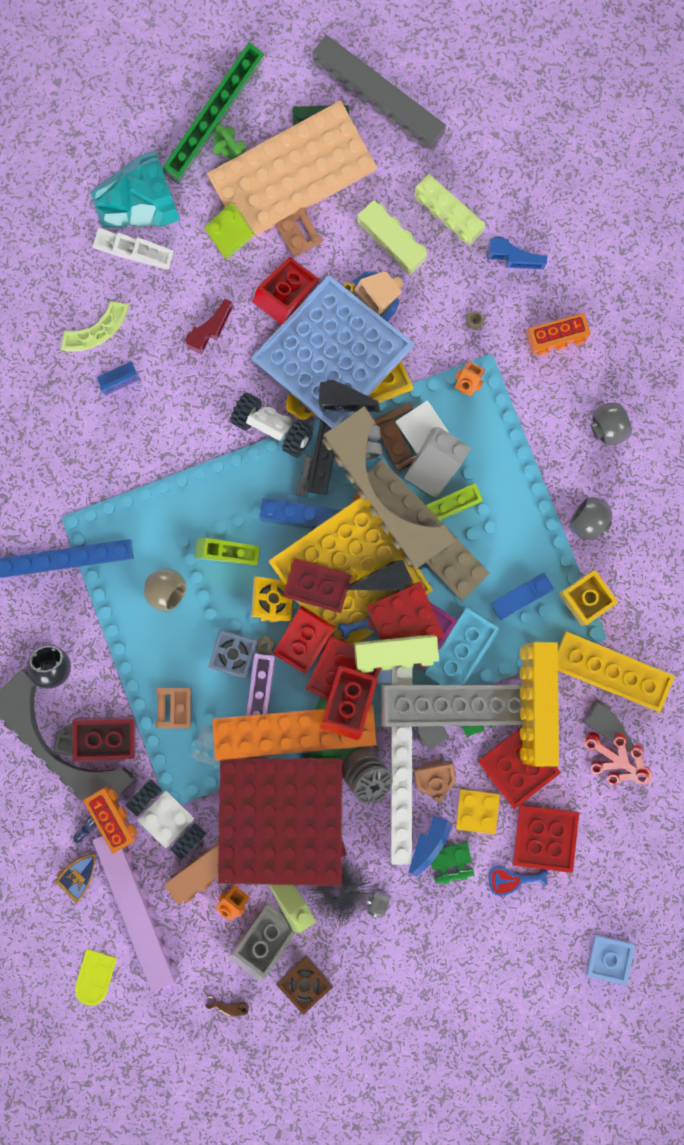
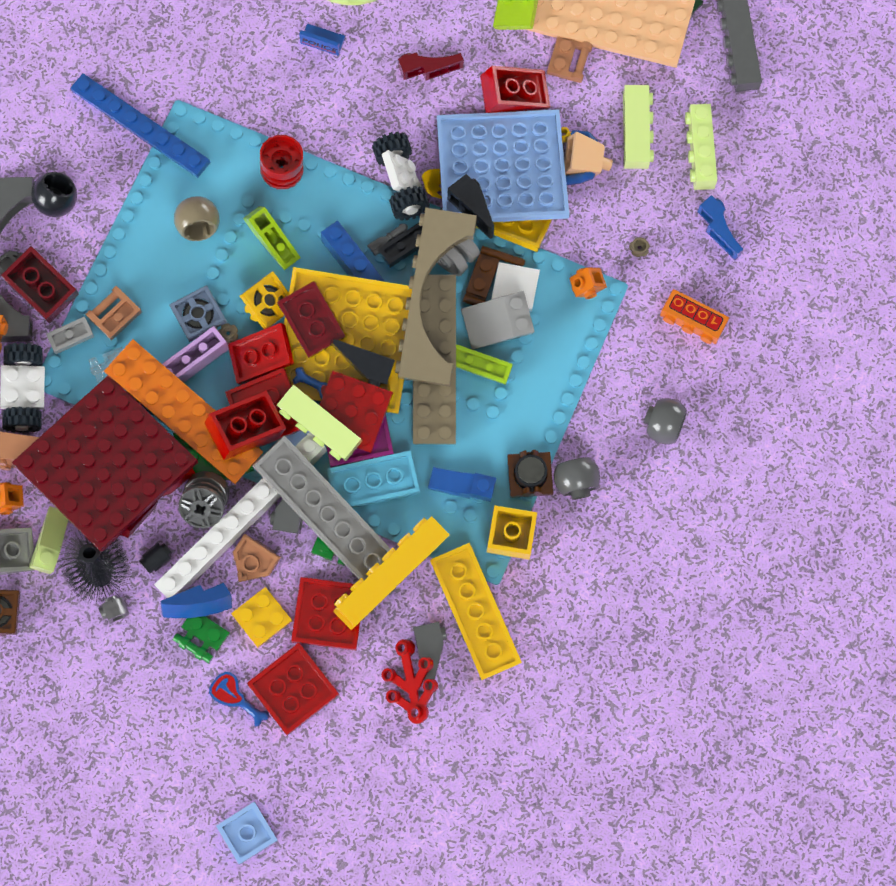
camera: 40 degrees right, 10 degrees down
(160, 752) = (70, 335): none -> light grey plate
(177, 483) = (278, 152): none -> red wheel
(370, 842) = (155, 557): none -> black brick
(558, 545) = (530, 473): none -> piece

